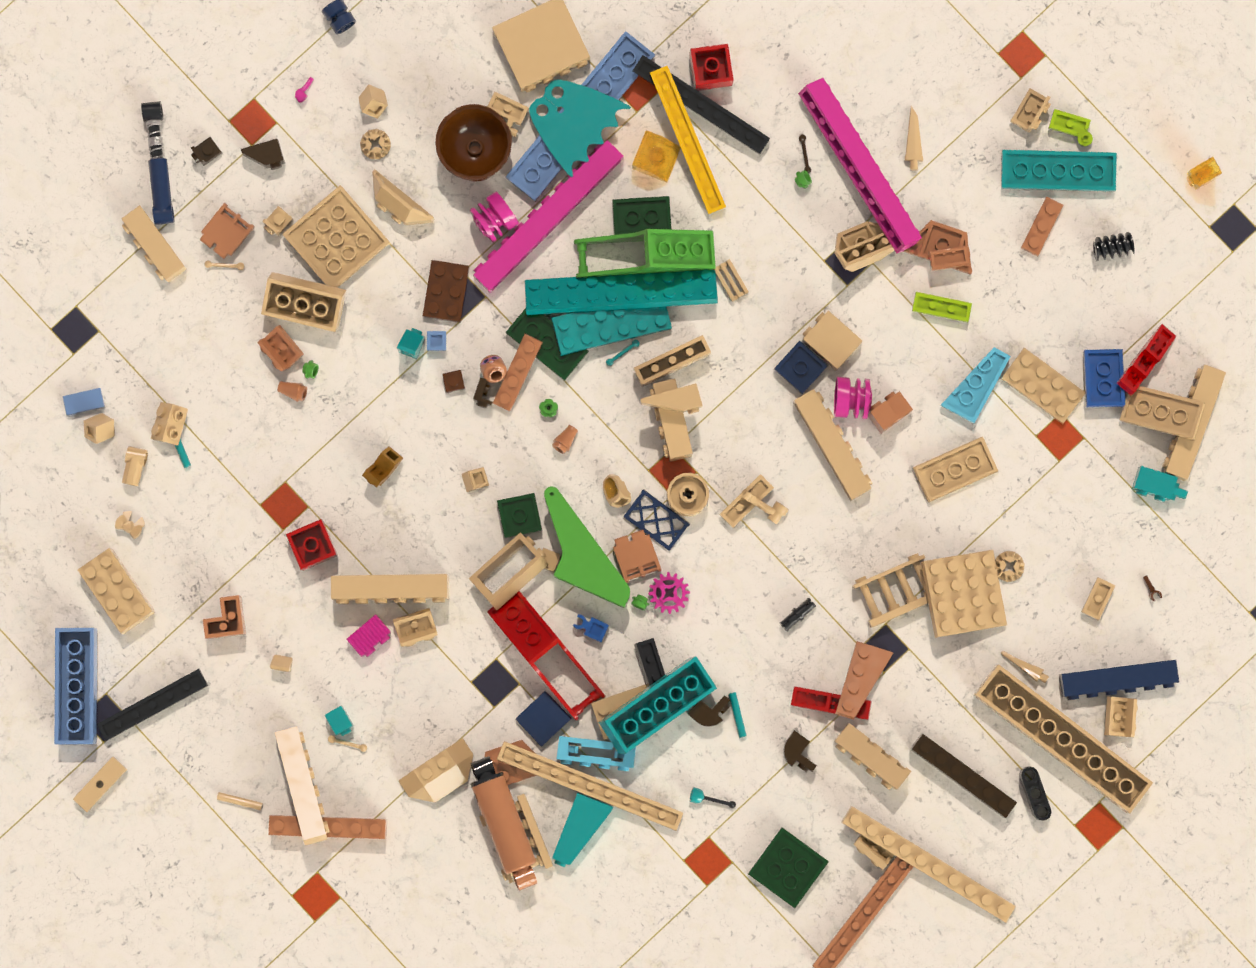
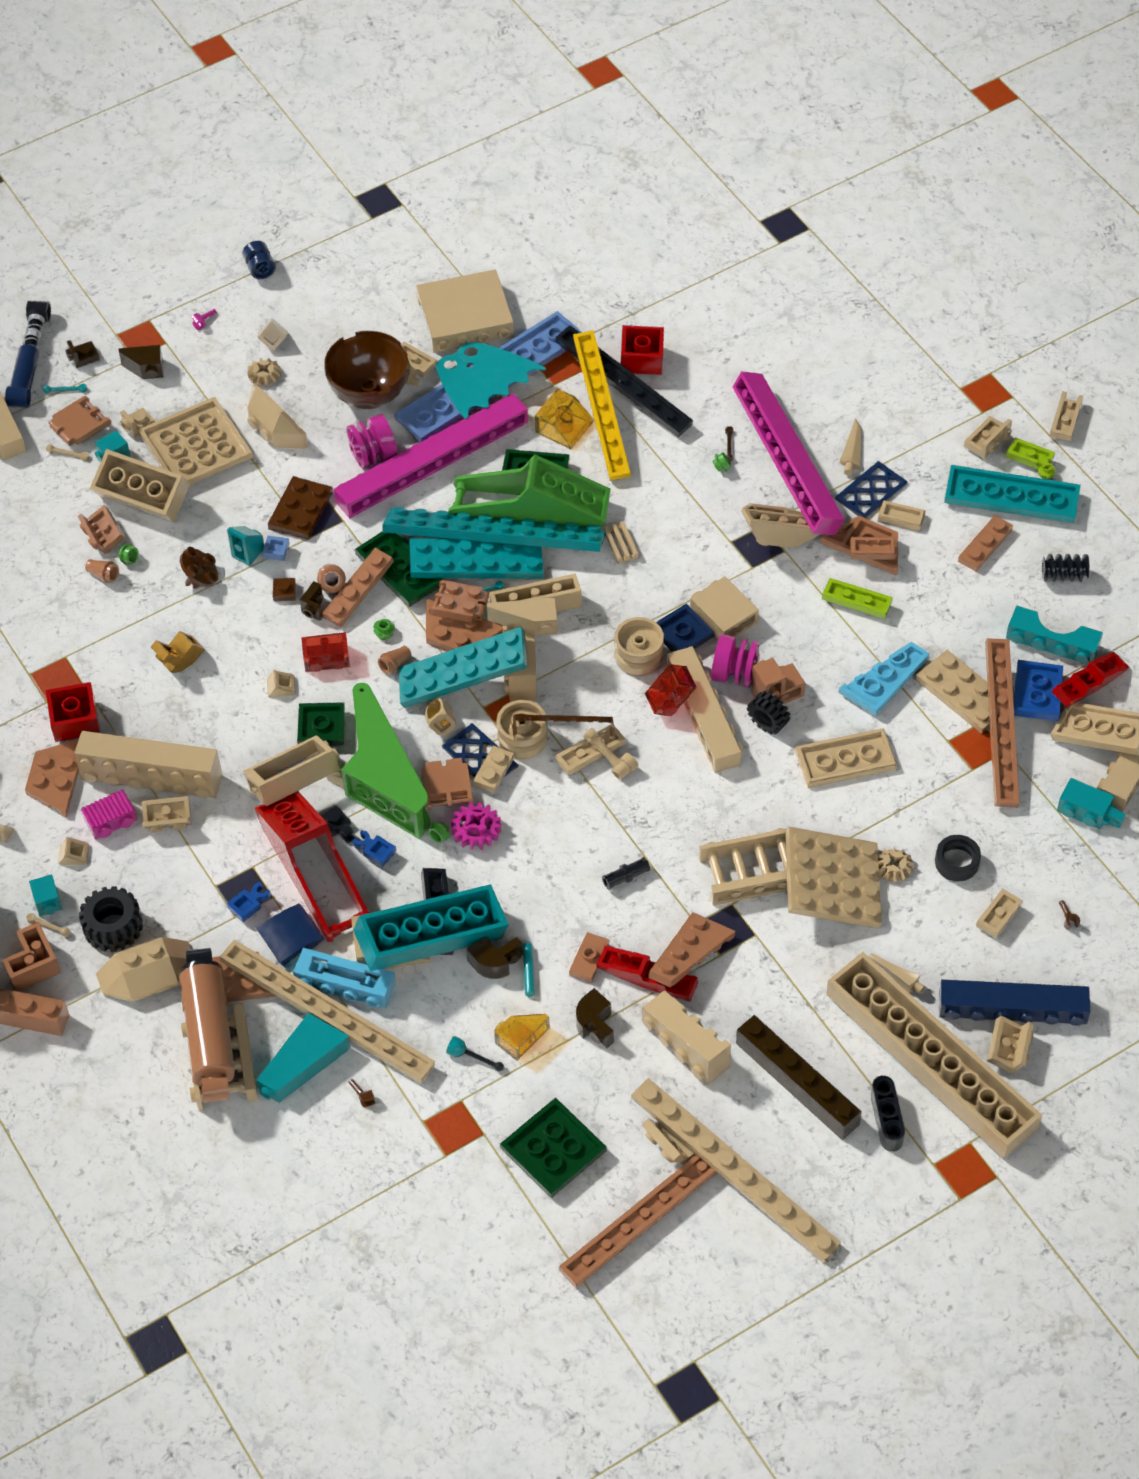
camera: 15 degrees right, 30 degrees down
(216, 189) = (82, 388): none -> teal hinge
(264, 259) = (112, 442): none -> teal brick
(312, 602) = (54, 776): none -> nougat wing
(348, 673) = (73, 852): none -> tan slope
(351, 782) = (34, 962): none -> nougat brick
(383, 377) = (198, 567): none -> reddish brown plate
(384, 744) = (111, 903): none -> black tyre
(500, 698) = (247, 904): none -> blue plate
(506, 444) = (325, 652): none -> clear red brick
(554, 607) = (339, 823): none -> black plate
(608, 373) = (459, 601): none -> nougat plate
(609, 397) = (452, 633): none -> nougat wing
(628, 449) = (462, 667): none -> teal plate
(637, 851) = (366, 1098): none -> reddish brown hand
(671, 534) = (493, 769): none -> tan plate
(714, 487) = (600, 719): none -> reddish brown piece
(743, 776) = (520, 1033): none -> clear yellow slope
(766, 405) = (639, 646): none -> tan wheel
(782, 695) = (587, 956): none -> nougat plate
(804, 438) = (670, 690): none -> clear red brick
(887, 444) = (768, 712): none -> black tyre
(931, 169) = (867, 476): none -> dark blue window
(966, 208) = (901, 515): none -> tan tile
(1073, 553) = (962, 843): none -> black tyre
(1079, 418) = (1002, 723): none -> nougat plate
(1087, 314) = (1078, 645): none -> teal arch
(1095, 75) = (1066, 417): none -> tan hinge

